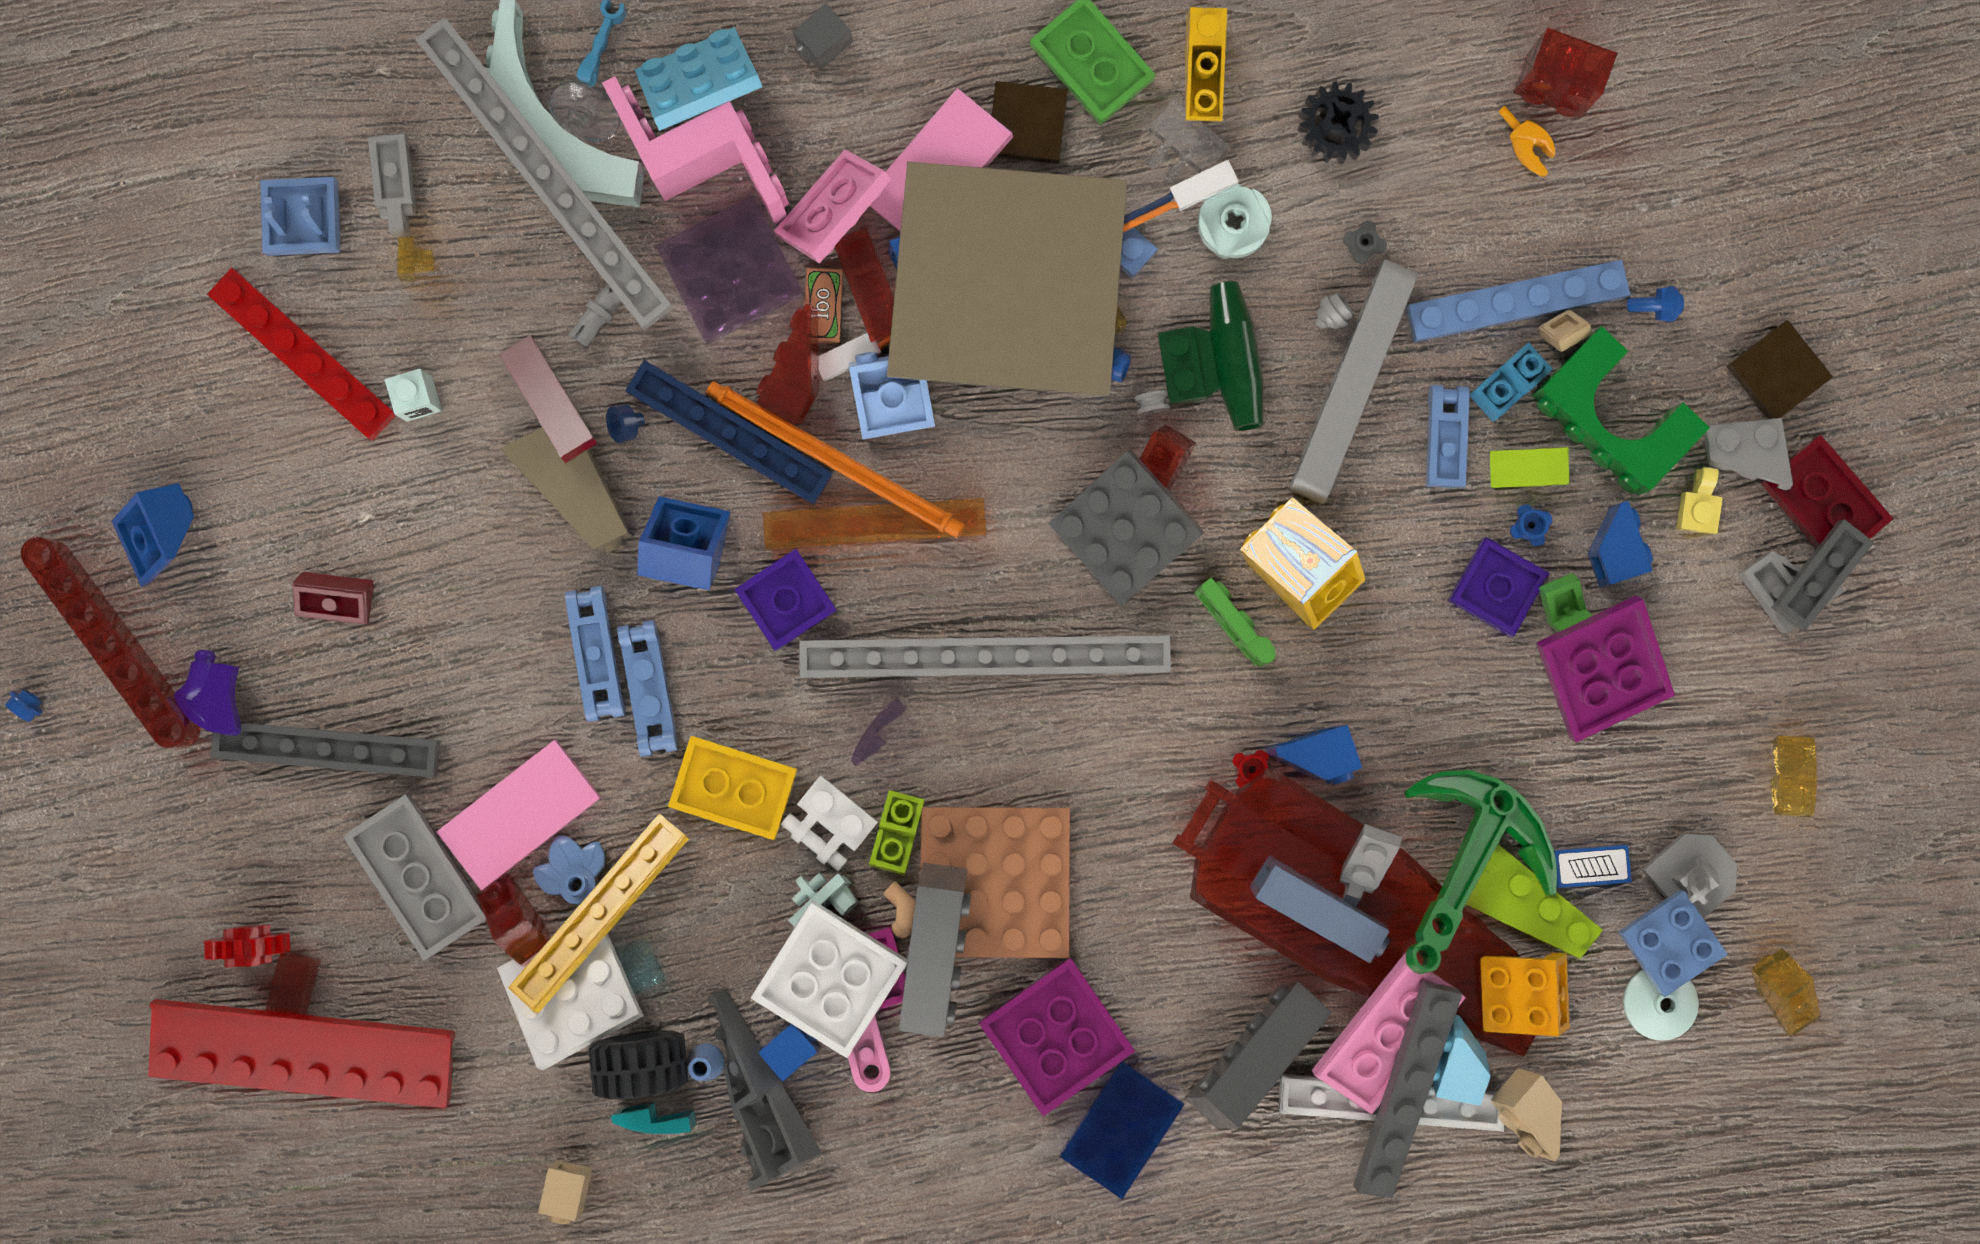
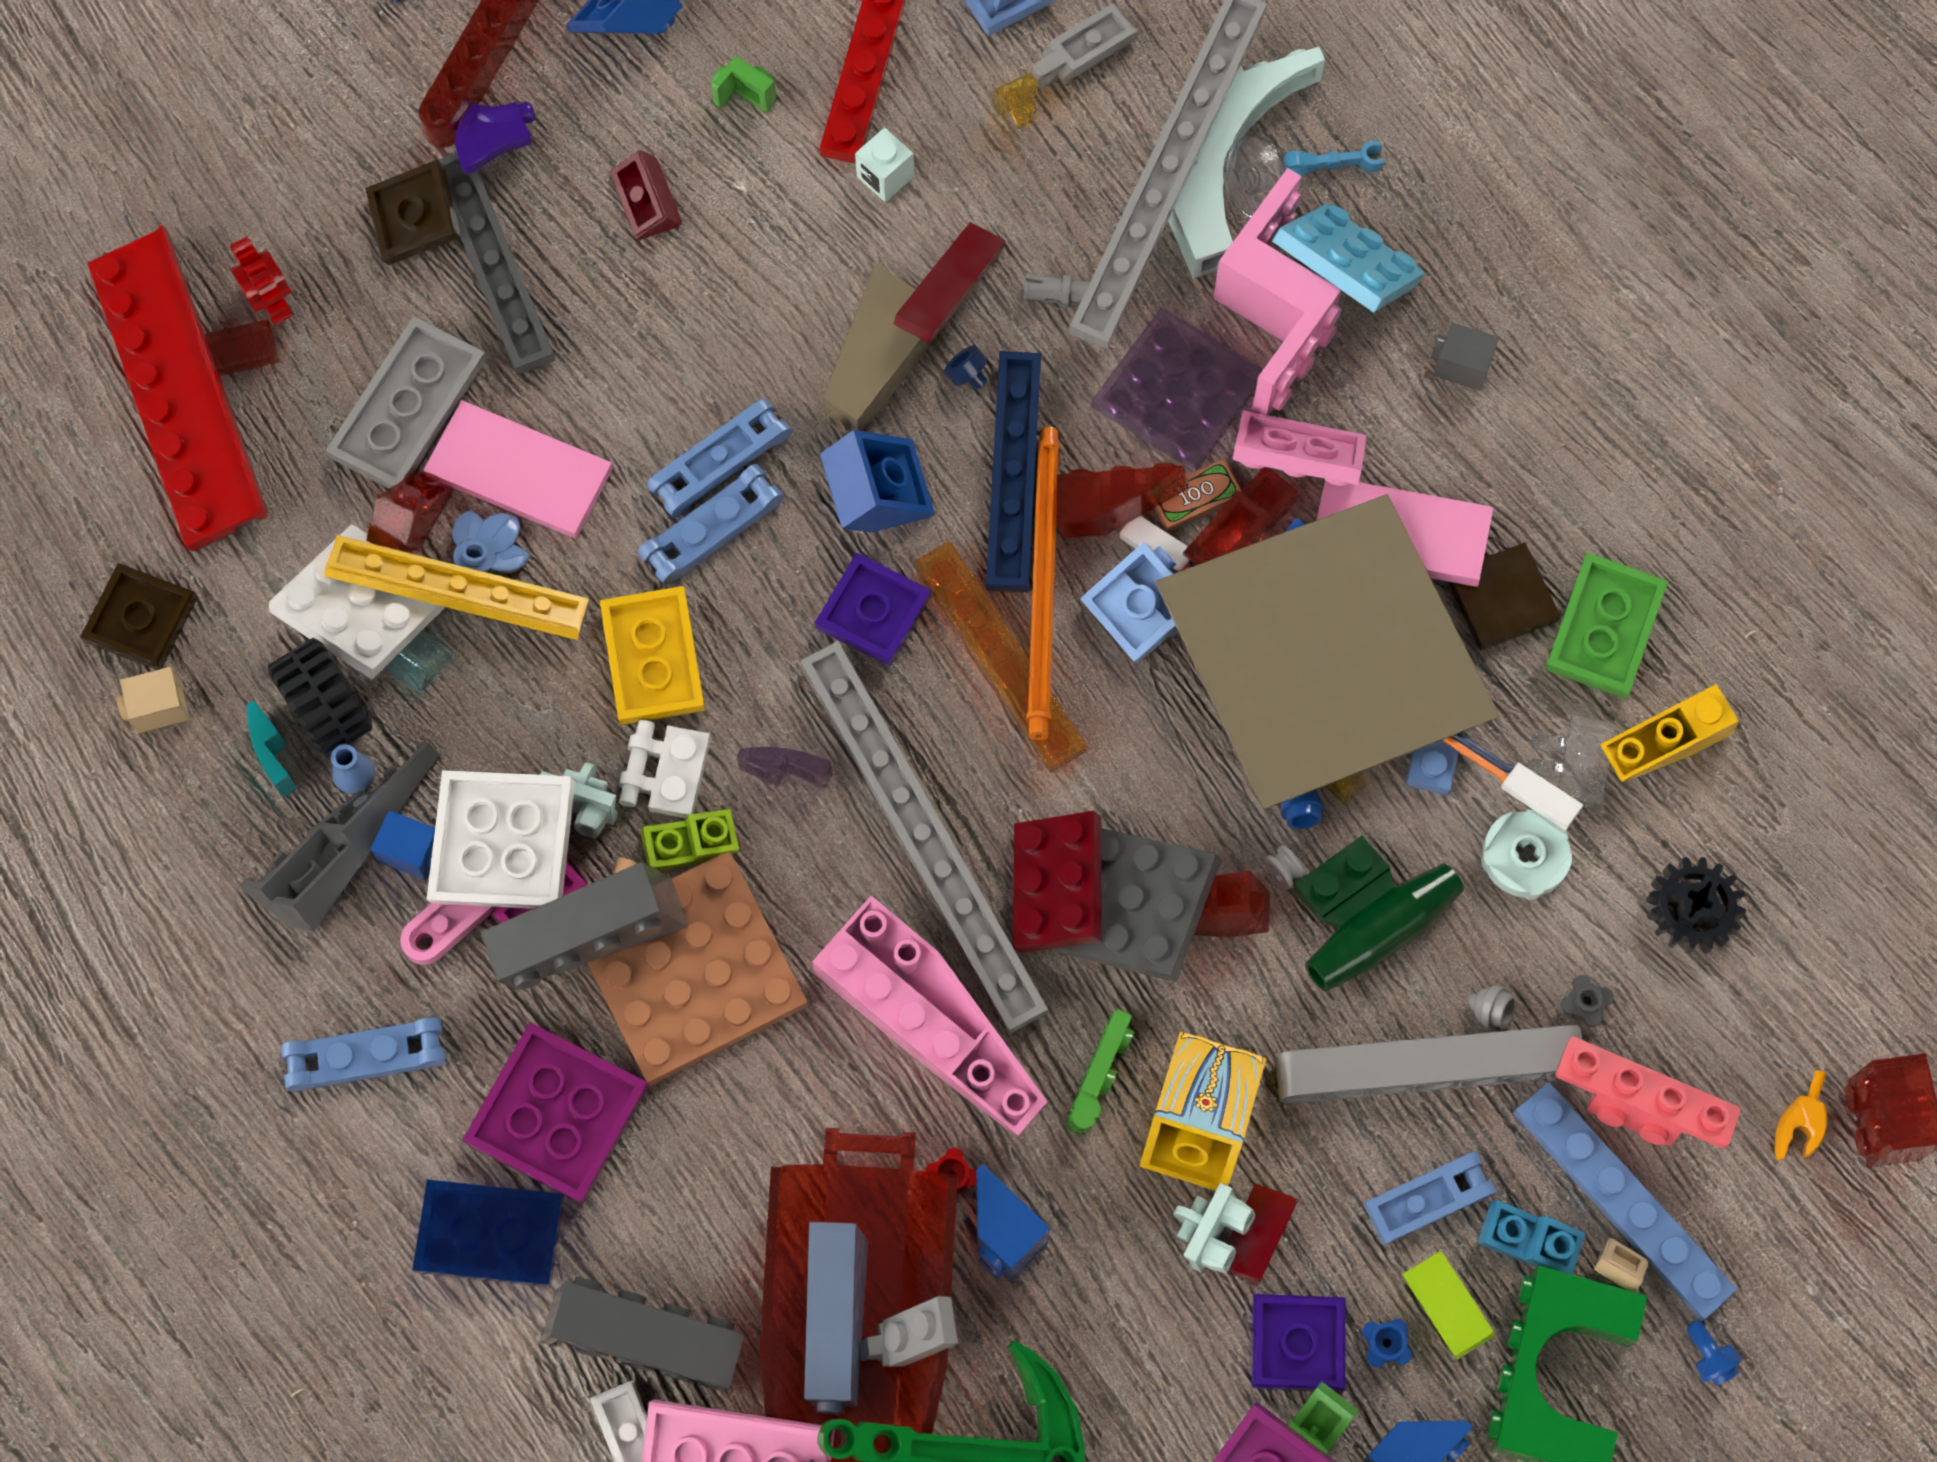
camera: 65 degrees right, 15 degrees down
(247, 792) = (413, 212): none -> dark brown tile
(280, 462) = (748, 81): none -> bright green bracket
(485, 1170) = (139, 617): none -> dark brown tile
(935, 1158) = (363, 1055): none -> medium blue plate
(1078, 576) = (1057, 882): none -> dark red plate
(1127, 723) = (927, 1011): none -> bright pink wedge
(1403, 616) = (1205, 1247): none -> light aqua hips
(1408, 572) = (1257, 1246): none -> dark red slope
(1462, 242) = (1644, 1098): none -> coral bracket

